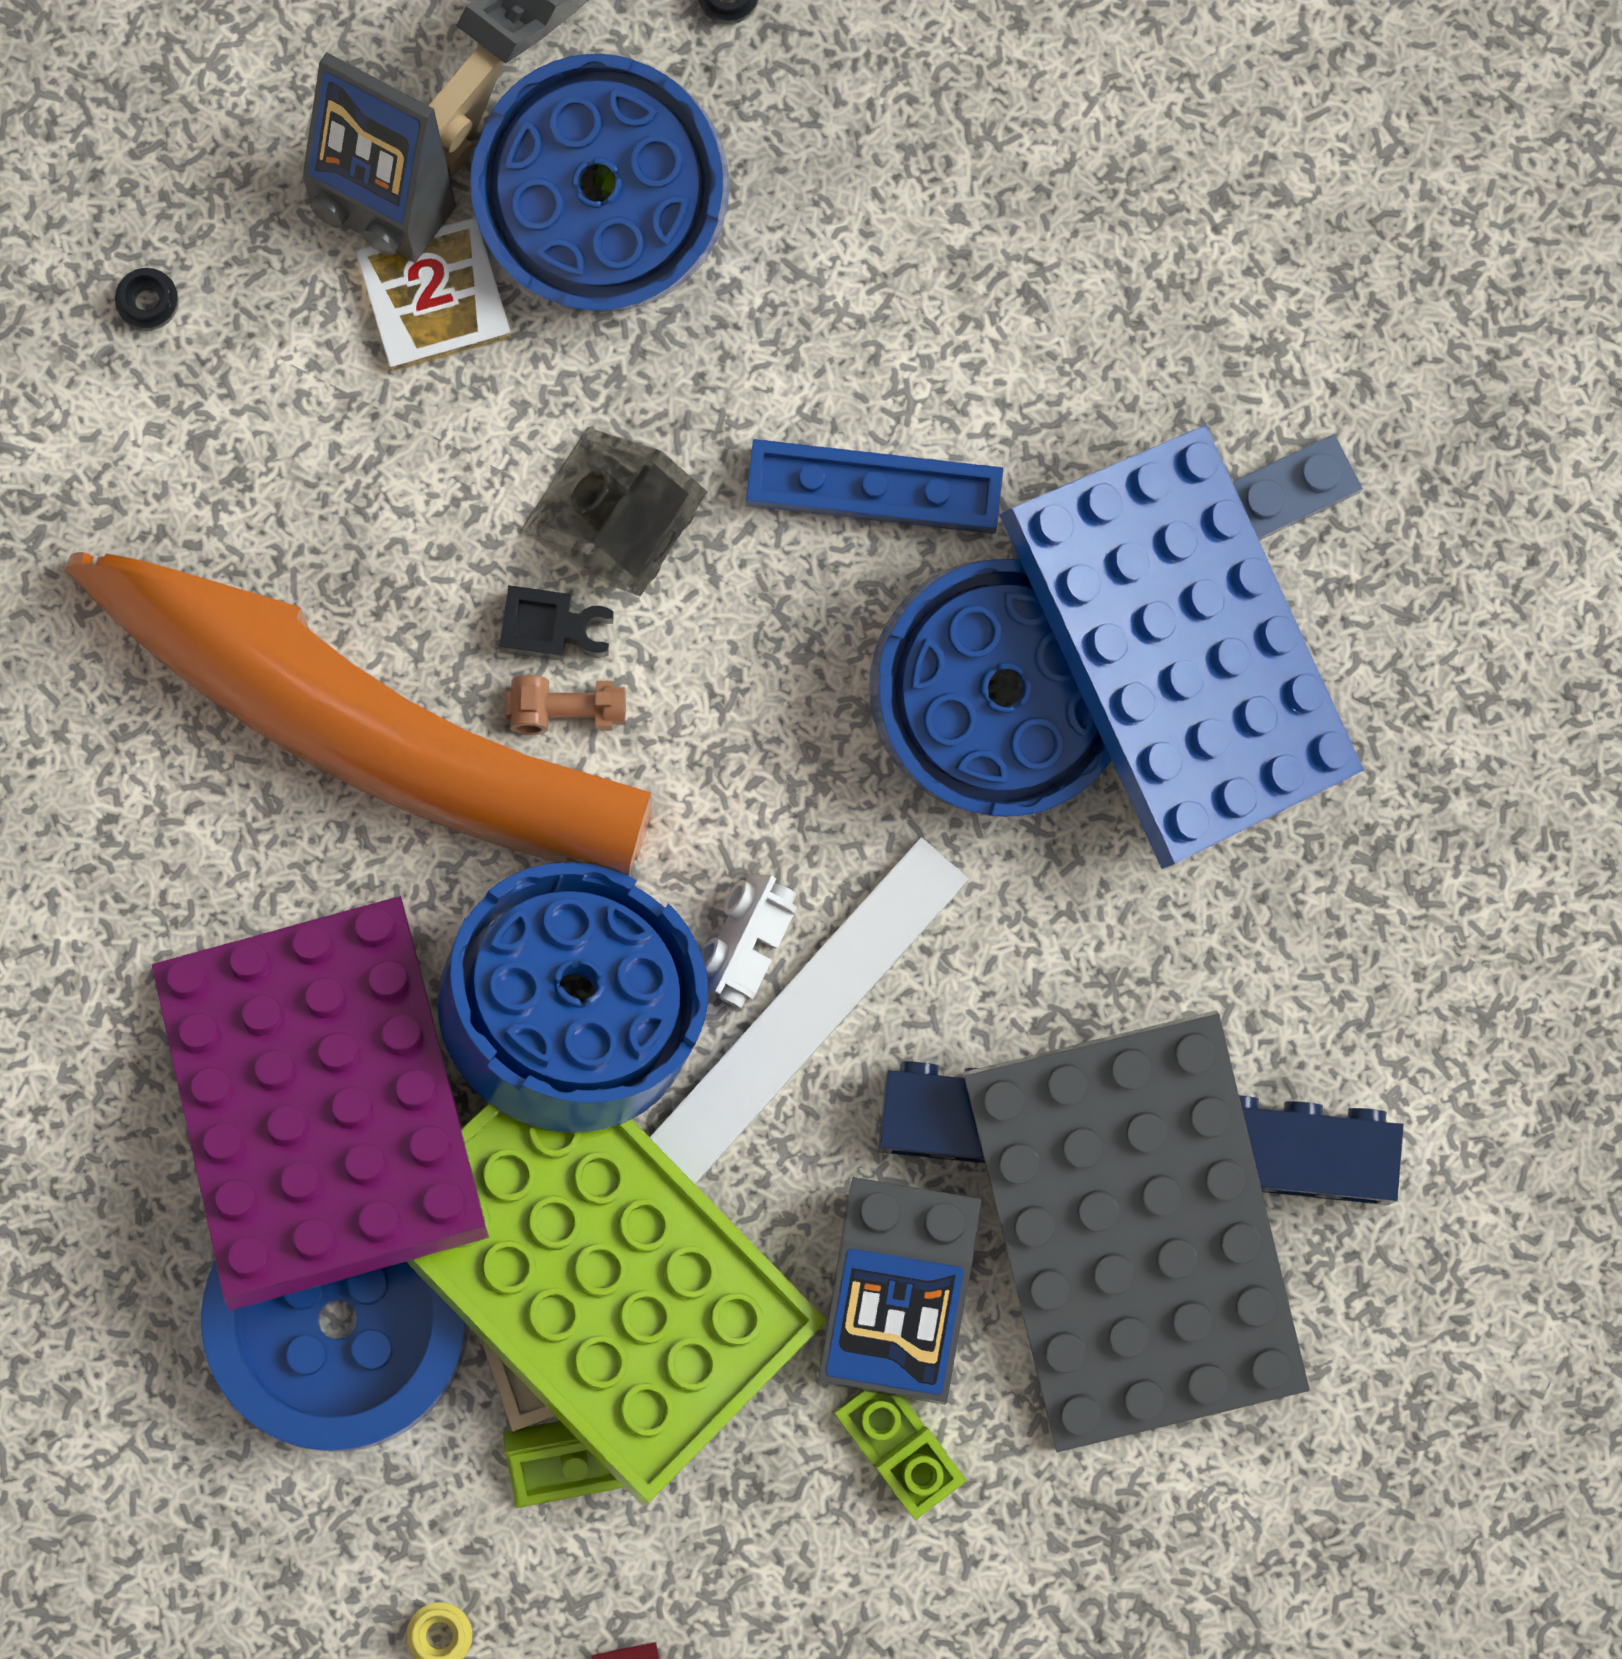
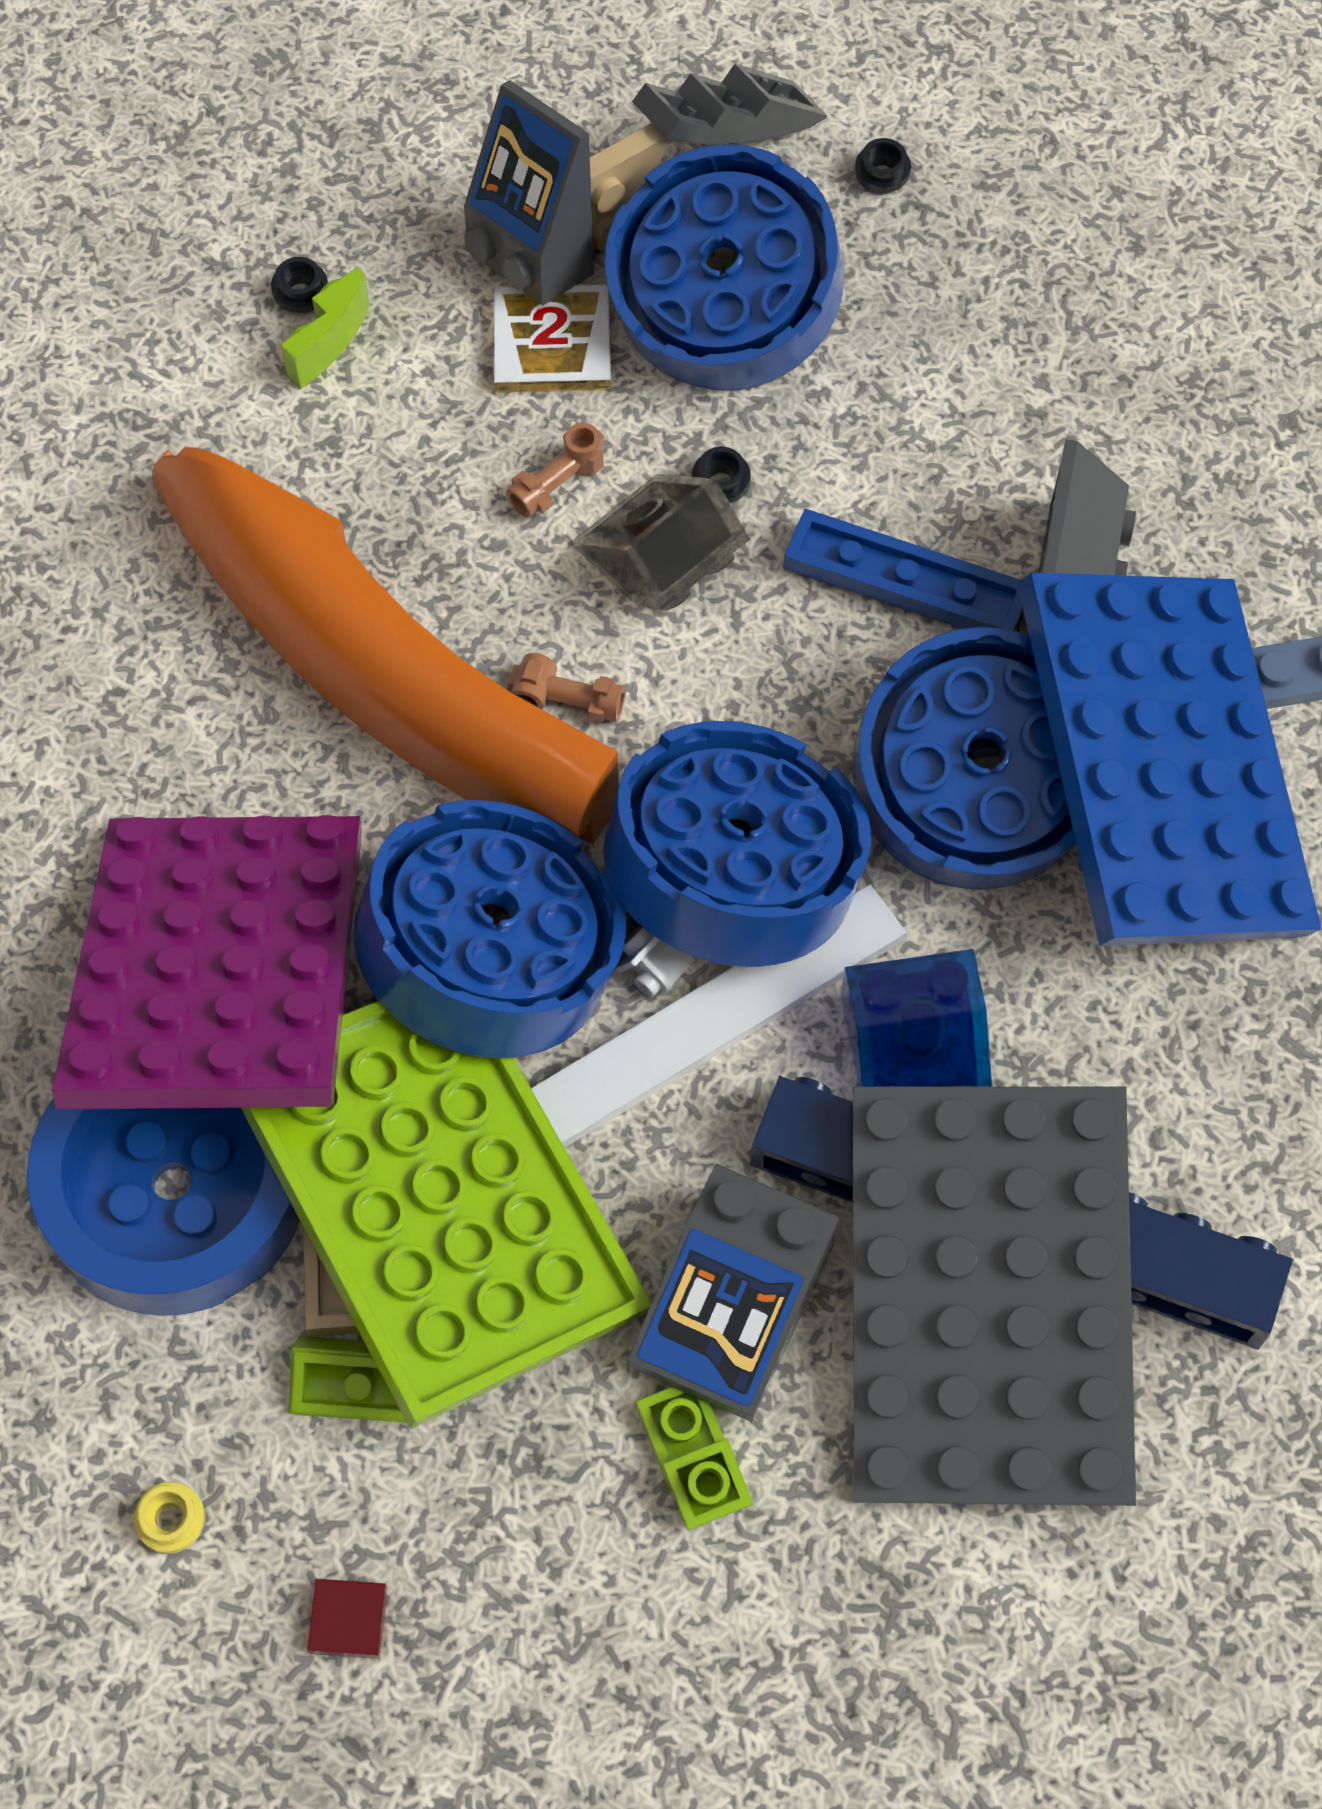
camera: 25 degrees right, 15 degrees down
(200, 329) = (338, 314): none -> lime slope
(505, 430) = (581, 456): none -> nougat bar
(541, 623) = (569, 616): black plate -> none
(649, 398) = (725, 461): none -> black plate
(764, 897) = (705, 884): none -> blue brick
(1005, 983) = (918, 1022): none -> clear blue slope
(1043, 411) = (1086, 517): none -> dark grey slope

